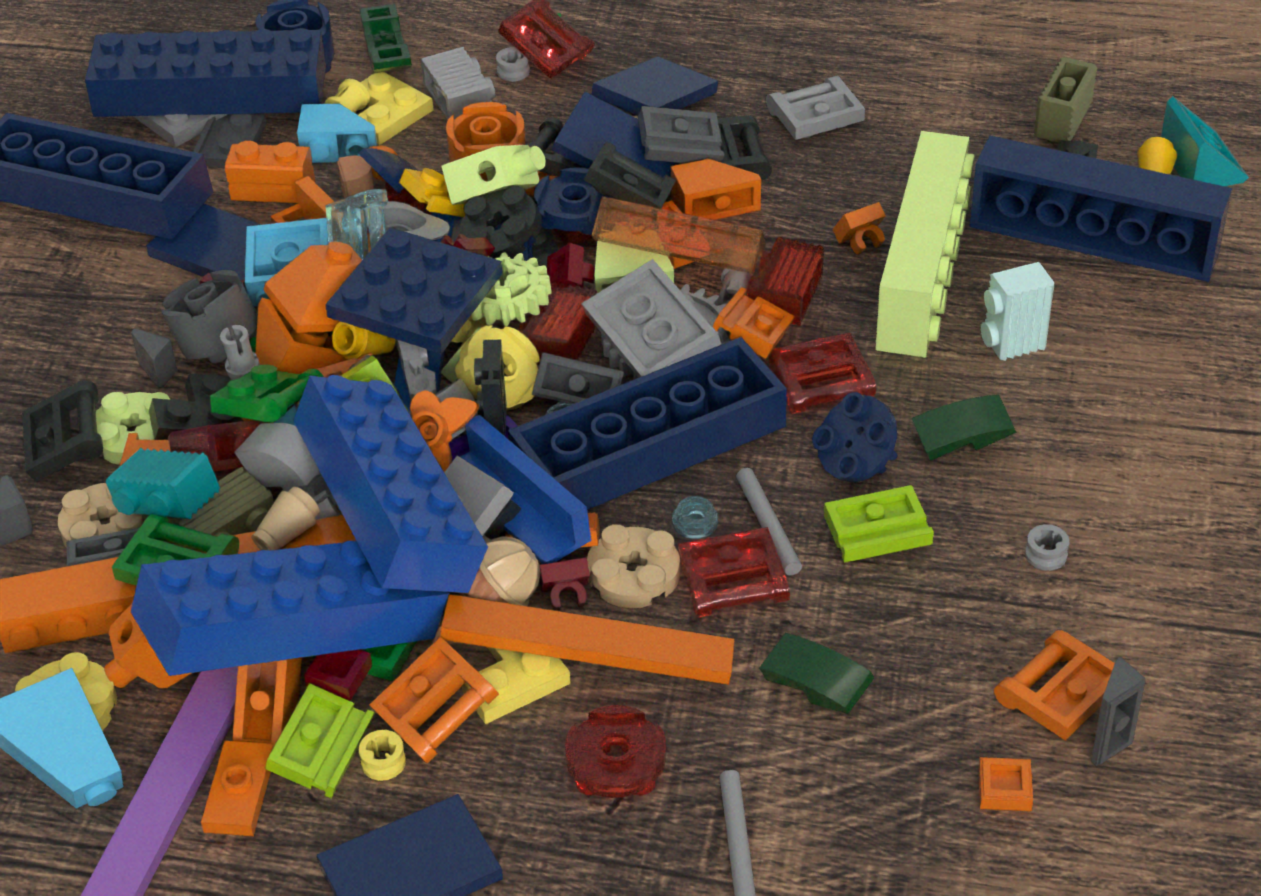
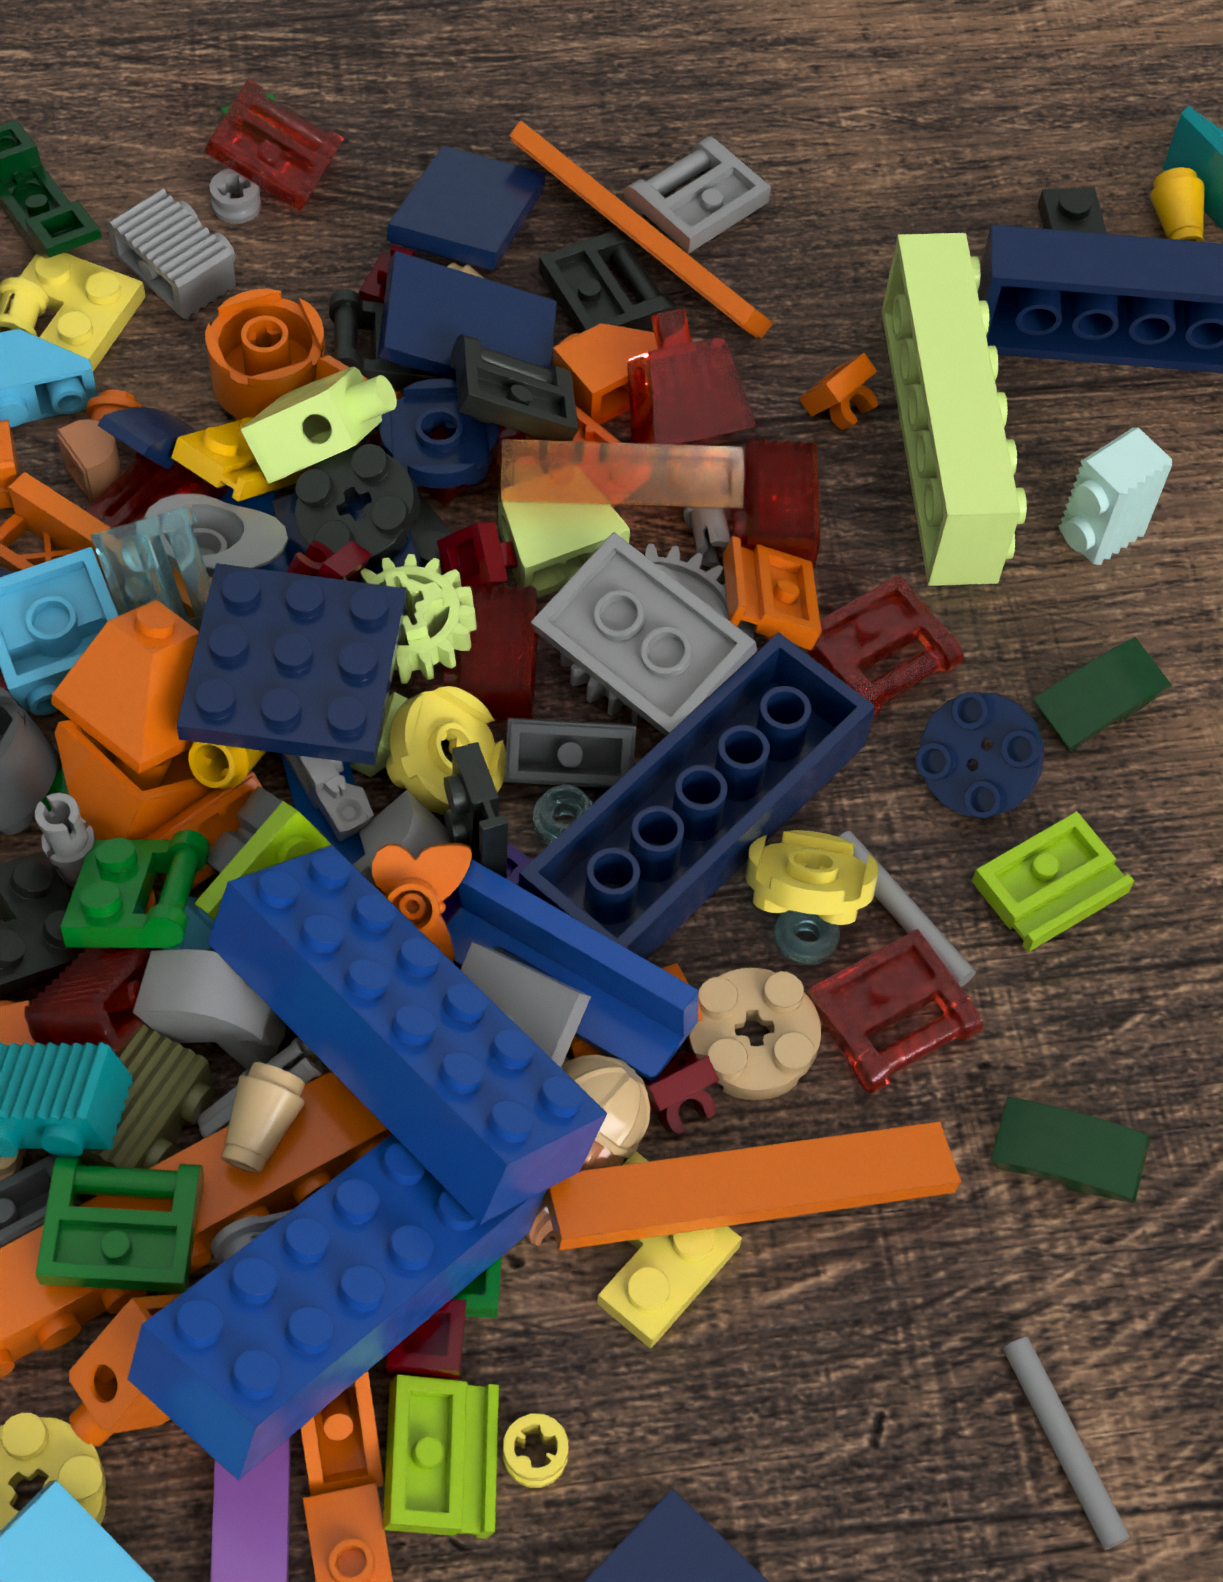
camera: 25 degrees left, 15 degrees up
(424, 689) = (559, 1337): orange plate -> none
(622, 775) = (837, 1389): clear red plate -> none
(679, 135) = (549, 293): dark grey plate -> none
(712, 481) = (811, 876): none -> light yellow plate
(749, 196) = (684, 387): none -> clear red torso
(767, 121) = (641, 231): none -> orange tile
(1065, 100) = (1035, 126): olive brick -> none

